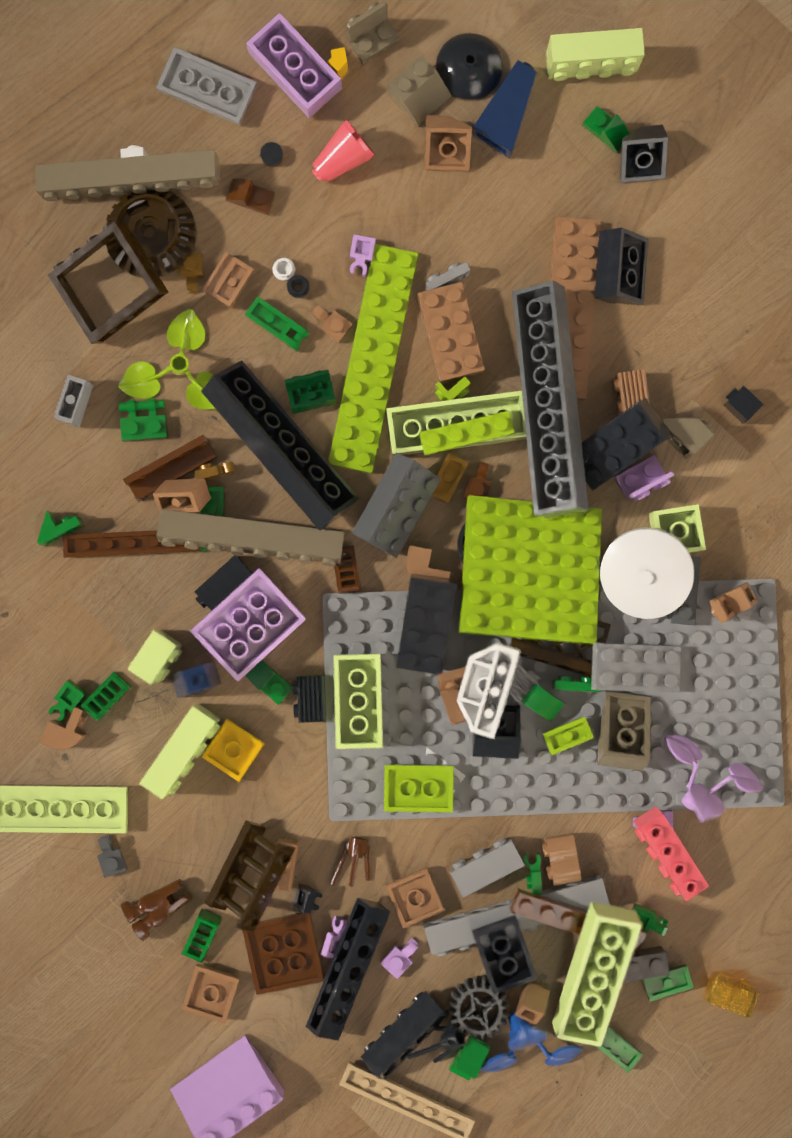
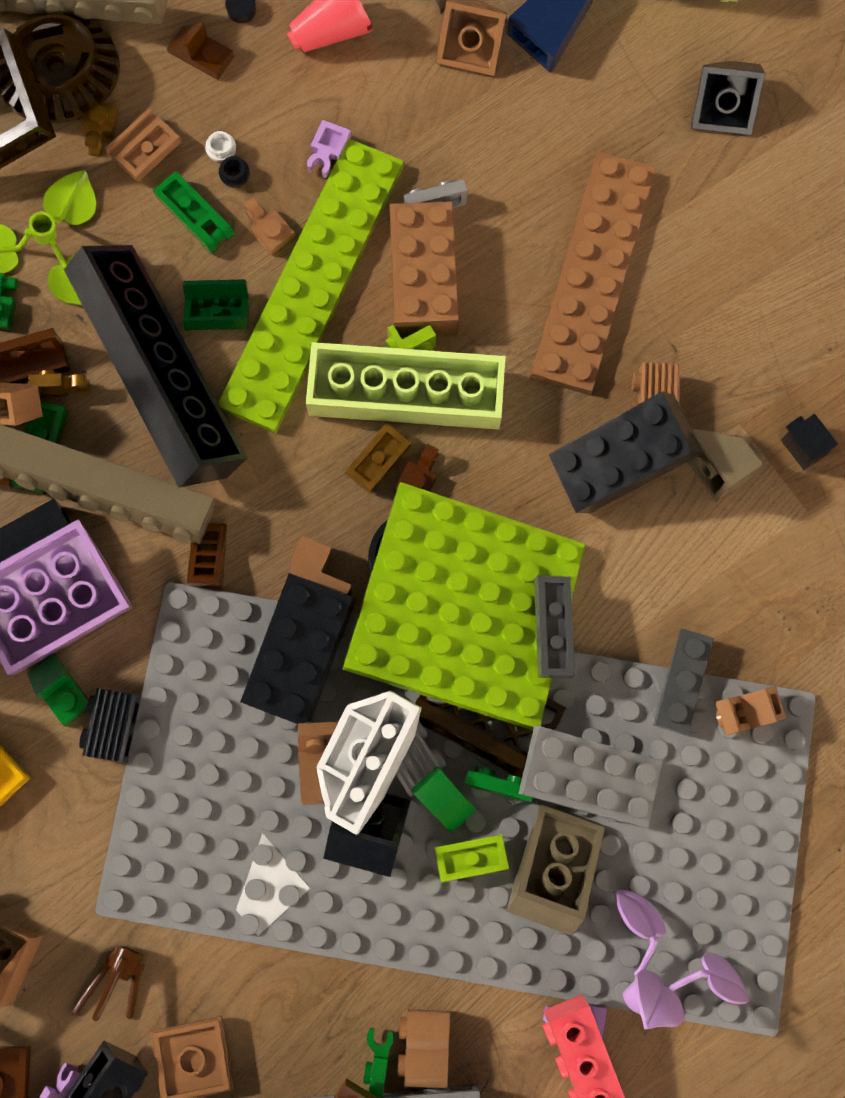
camera: 10 degrees right, 10 degrees down
(305, 898) = (26, 1026): black tile -> none
(358, 701) = (175, 740): yellowish green brick -> none
(396, 505) = (295, 476): dark grey brick -> none
(418, 788) = (233, 891): lime plate -> none
(466, 433) = (414, 395): lime plate -> none
(486, 866) = (308, 1034): light grey brick -> none
(549, 400) = (539, 380): dark grey brick -> none
(593, 574) = (554, 627): none -> dark grey plate
(606, 128) = (684, 57): green slope -> none
(621, 267) = (672, 230): black slope -> none
(641, 477) = (649, 514): lavender bracket -> none
(647, 573) = (634, 642): white dish -> none
(682, 523) = (686, 594): yellowish green brick -> none

